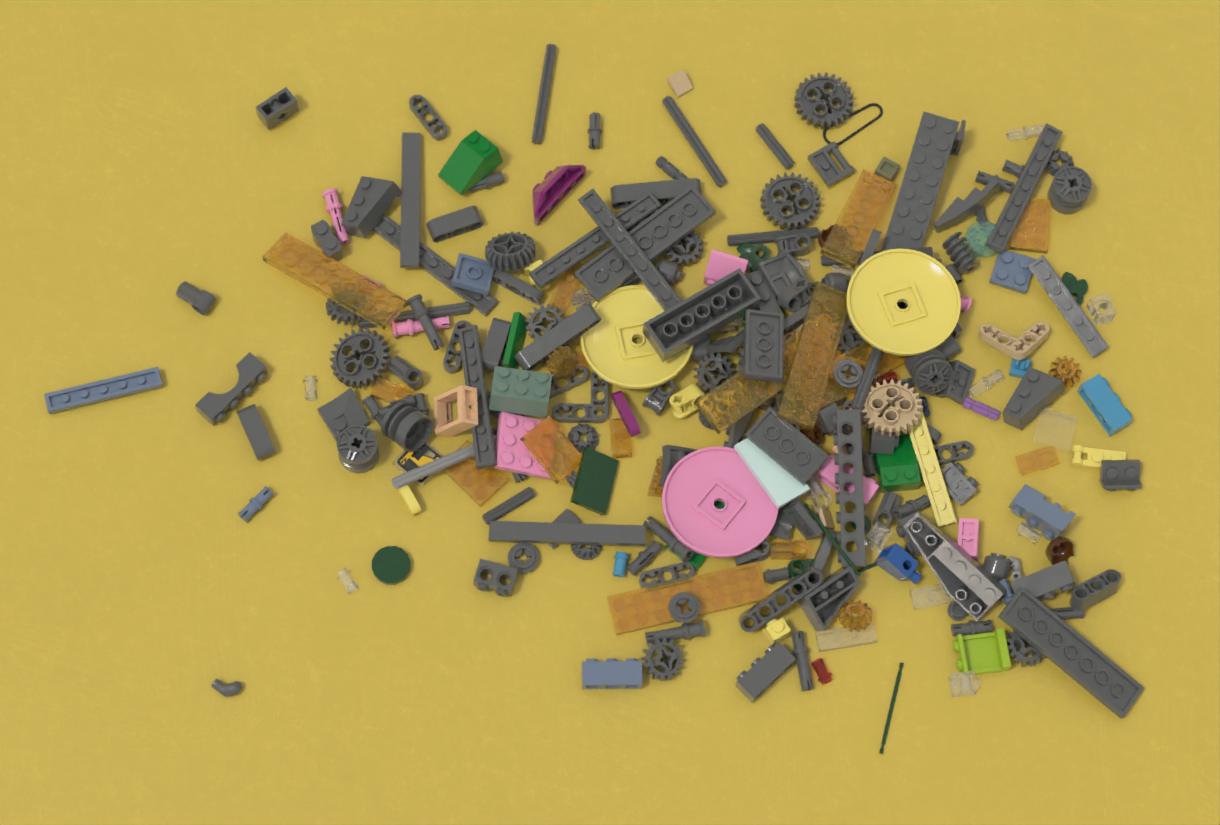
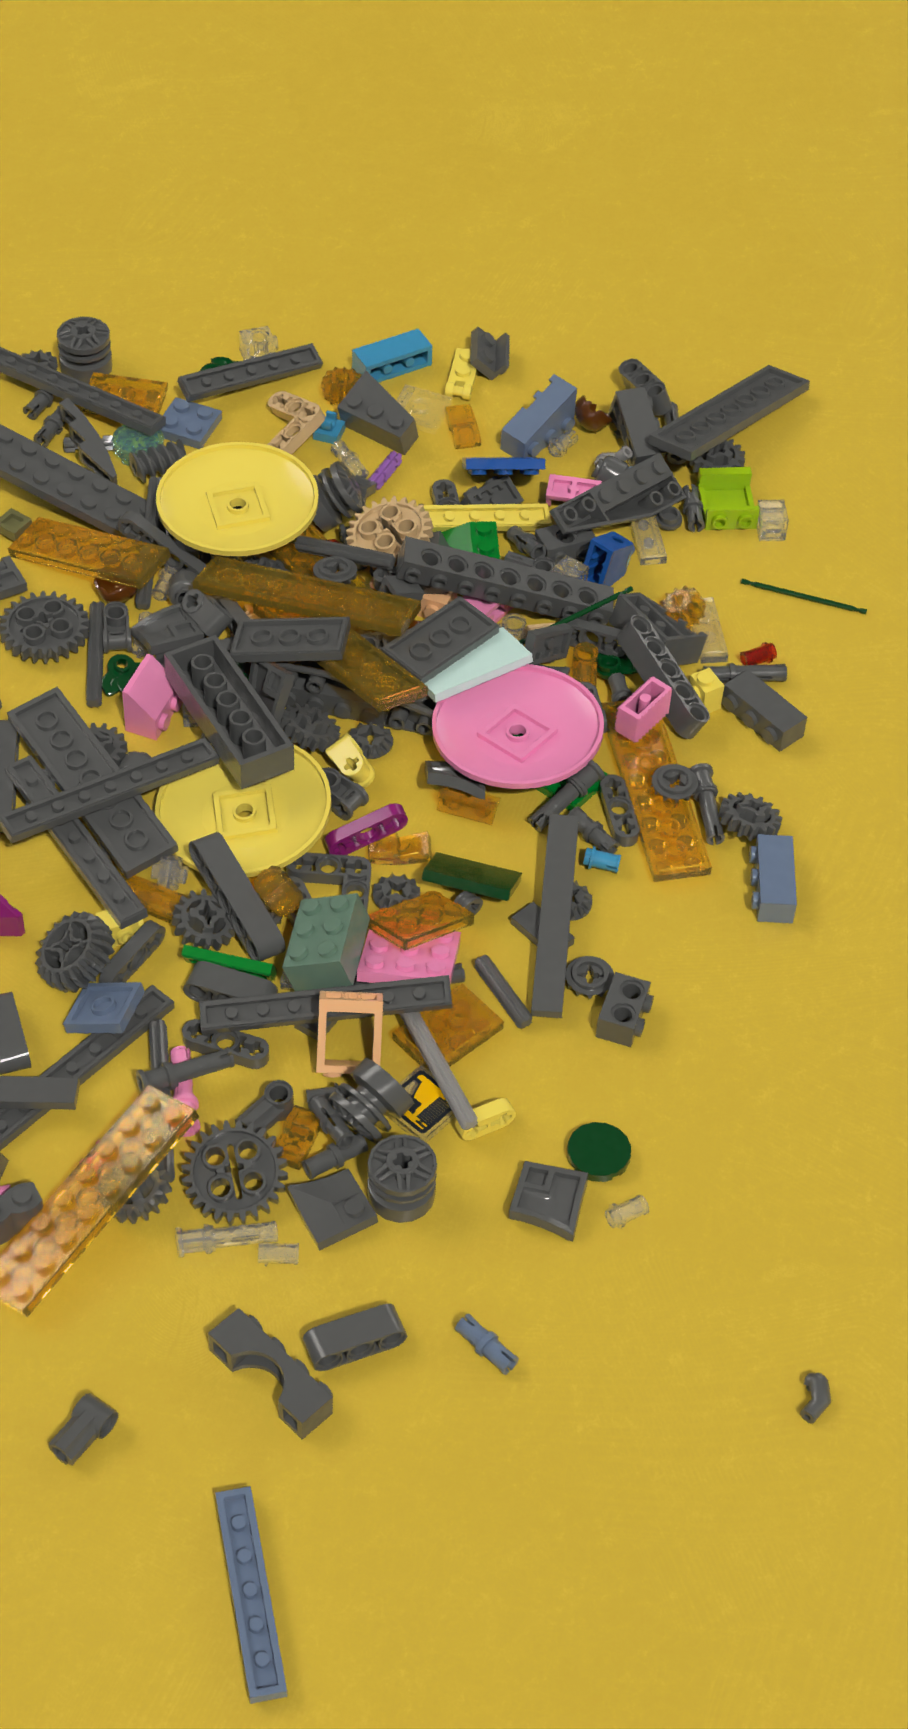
camera: 85 degrees left, 20 degrees down
(317, 350) = (210, 1238): none -> clear pin
(353, 535) = (549, 1198): none -> dark grey plate
(742, 583) = (643, 709): none -> bright pink brick
(985, 485) = (503, 465): none -> blue plate

